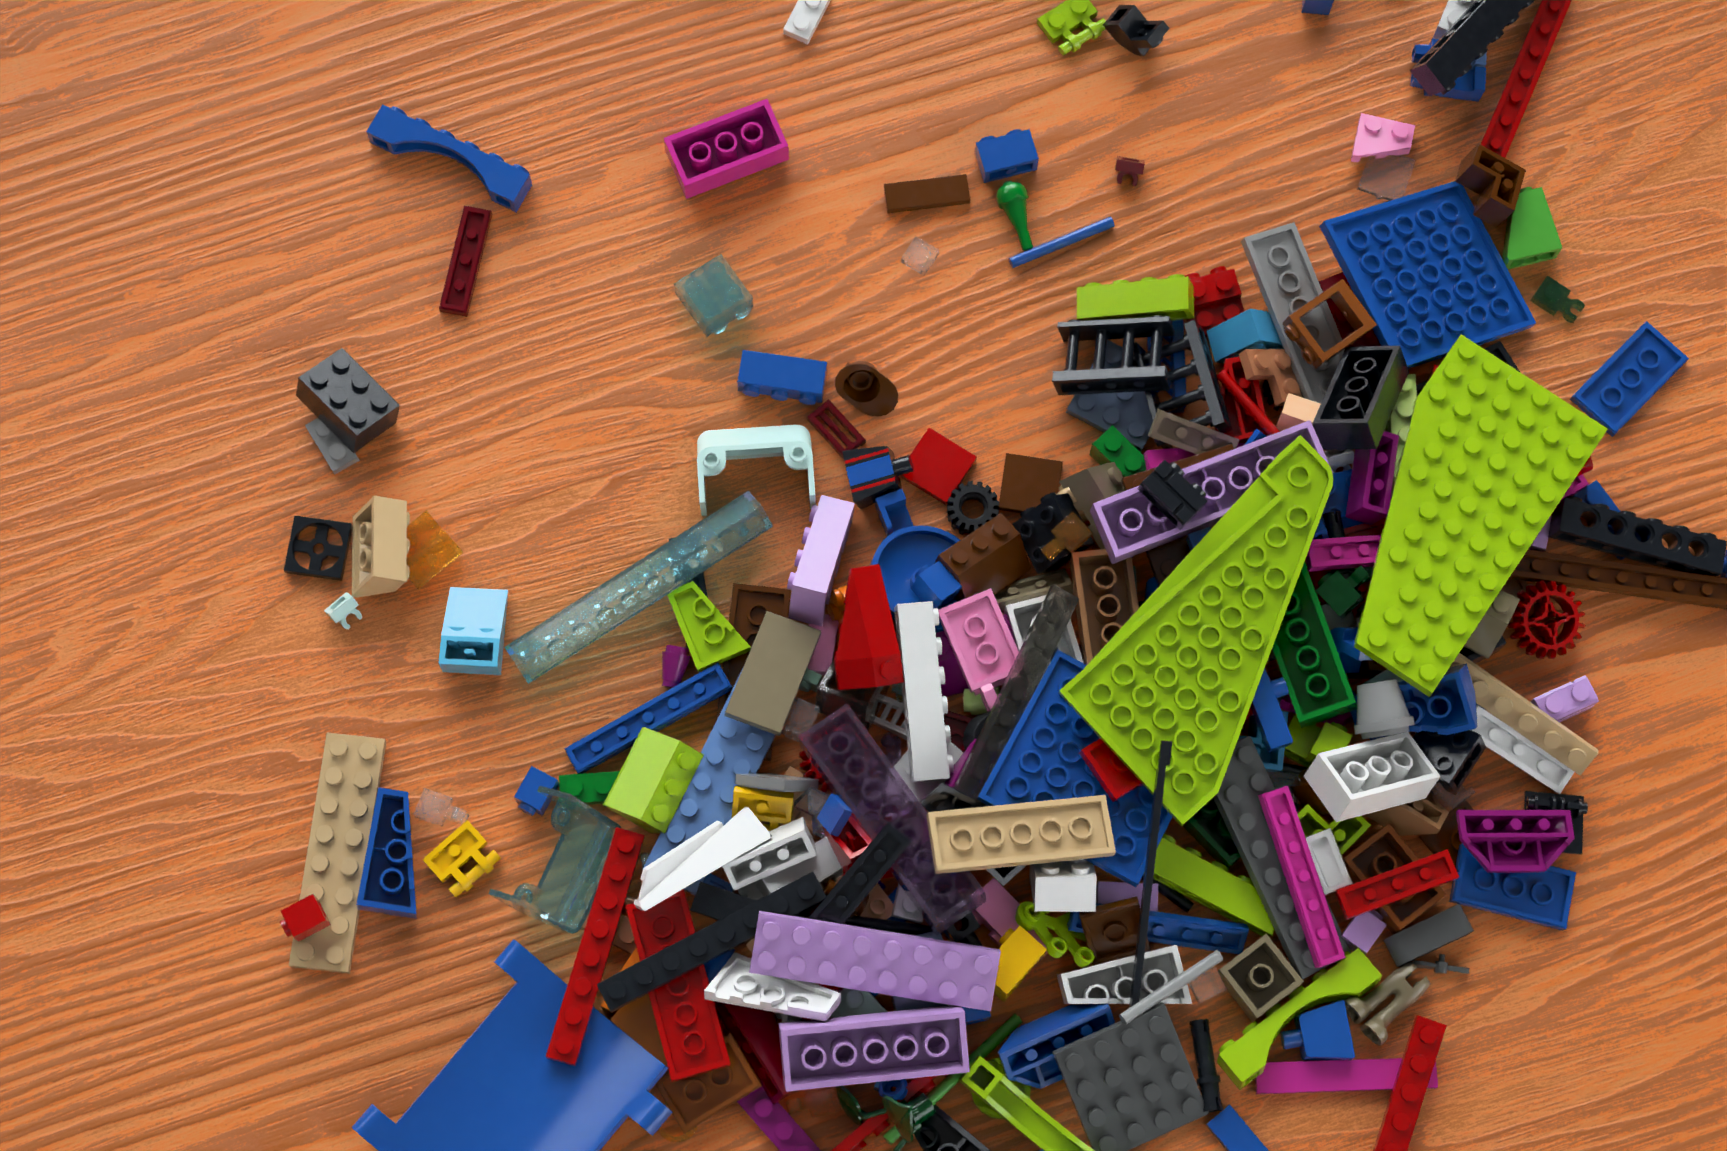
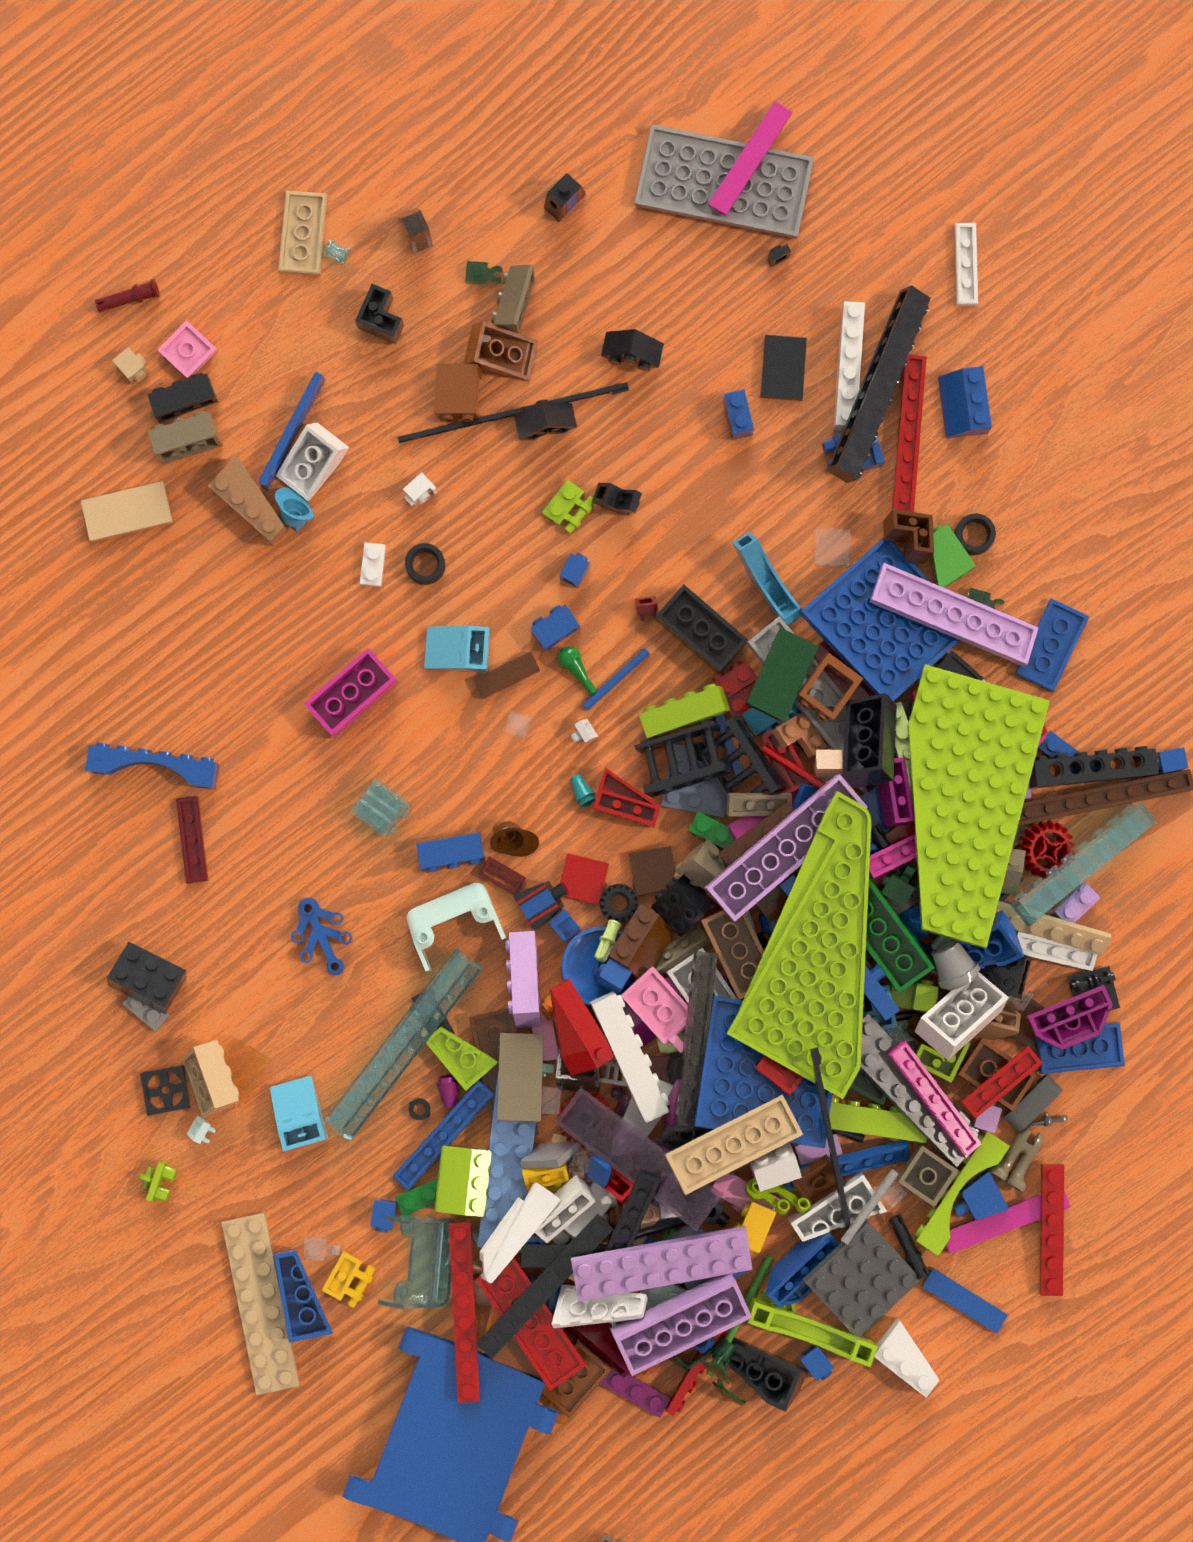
camera: 15 degrees left, 10 degrees up
(263, 650) = (162, 1172): none -> lime hips
(304, 918) = (256, 1362): red brick -> none
(582, 421) = (319, 933): none -> blue plant
(629, 668) = (411, 1109): none -> black piece
(871, 12) = (413, 552): none -> black tyre
(878, 140) = (457, 648): none -> medium azure slope
(942, 543) = (607, 940): none -> yellowish green axle
(974, 363) = (582, 791): none -> teal cone
(1000, 289) = (584, 732): none -> white tile
(1023, 387) = (624, 801): none -> red wedge
(1054, 96) = (575, 569): none -> blue brick
(1069, 534) = (695, 910): clear orange plate -> none
(1173, 493) = (761, 865): black brick -> none
(1189, 213) = (701, 629): none -> black brick
(1274, 288) = (782, 675): none -> dark green tile
(1290, 175) = (766, 579): none -> dark azure arch
(1328, 861) = (949, 1081): white tile -> none
(1381, 138) = (820, 521): bright pink wing -> none
(1516, 296) = (954, 614): none -> lavender plate
(1583, 198) = (983, 520): none -> black tyre
(1590, 647) = (1084, 863): none -> clear light blue brick
(1608, 57) = (965, 402): none -> blue slope

